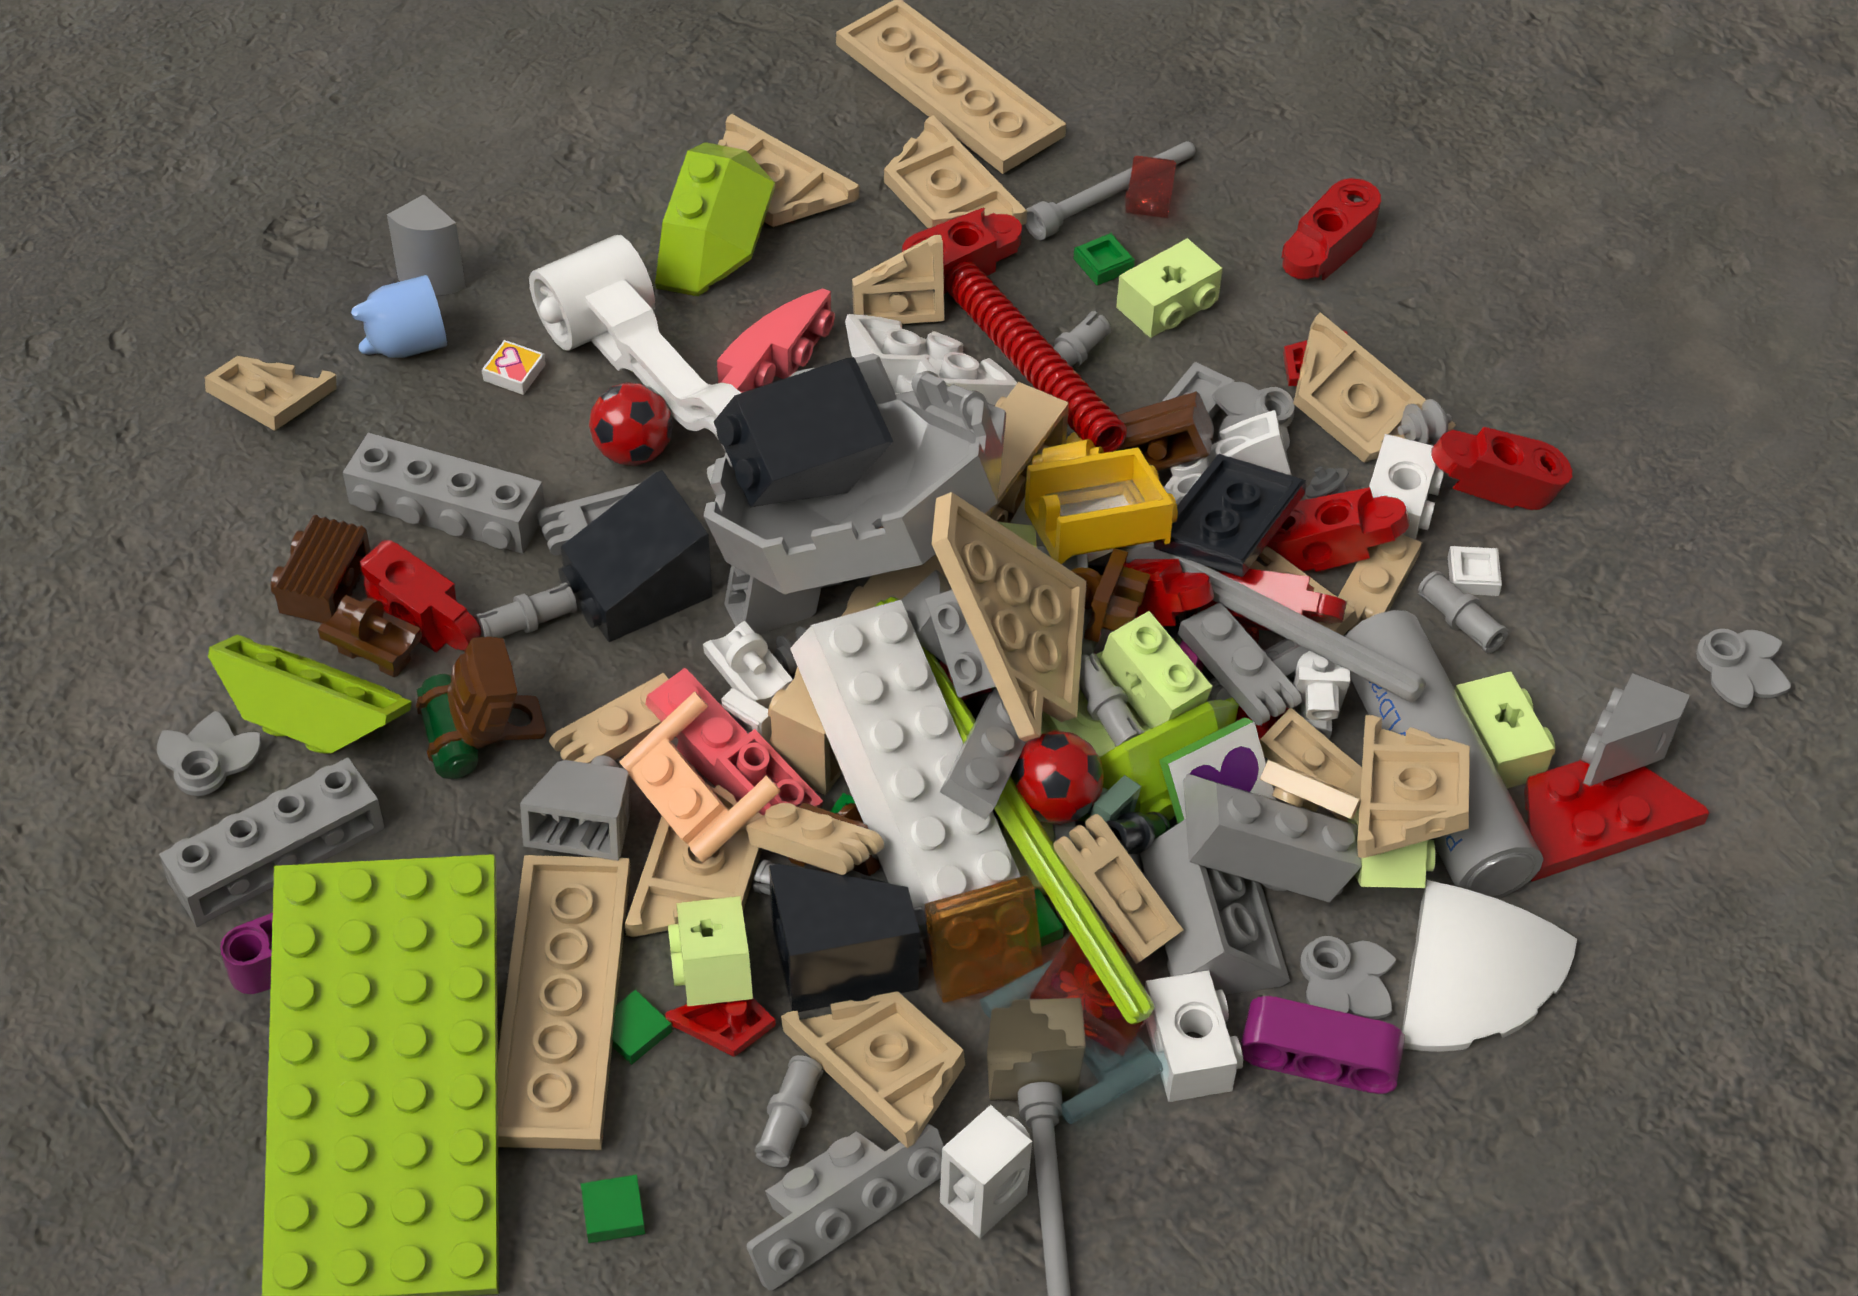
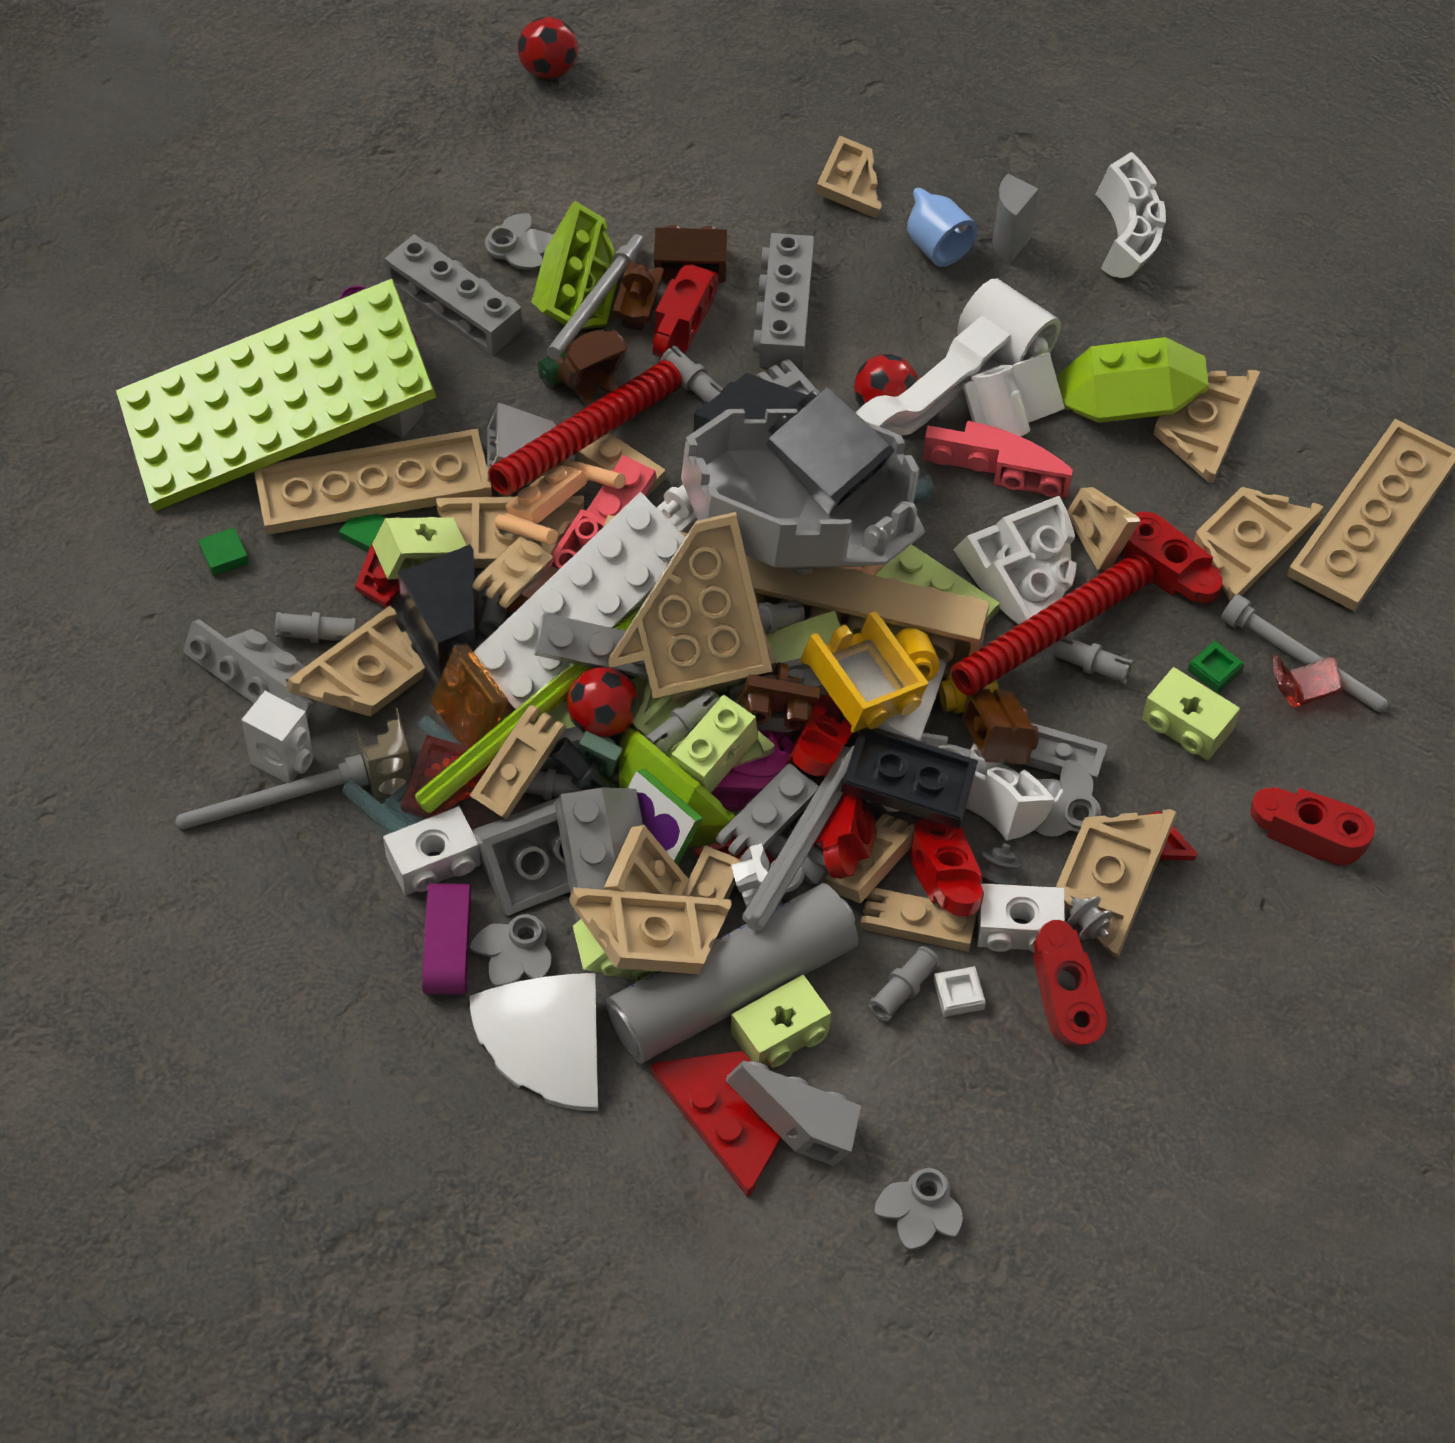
camera: 75 degrees right, 5 degrees up
(303, 642) = (620, 262): none -> light grey bar
(465, 156) = (1137, 212): none -> white brick
(513, 367) = (932, 311): tile -> none
(596, 726) = (584, 428): none -> red piece
(690, 319) = (1014, 394): none -> white piece

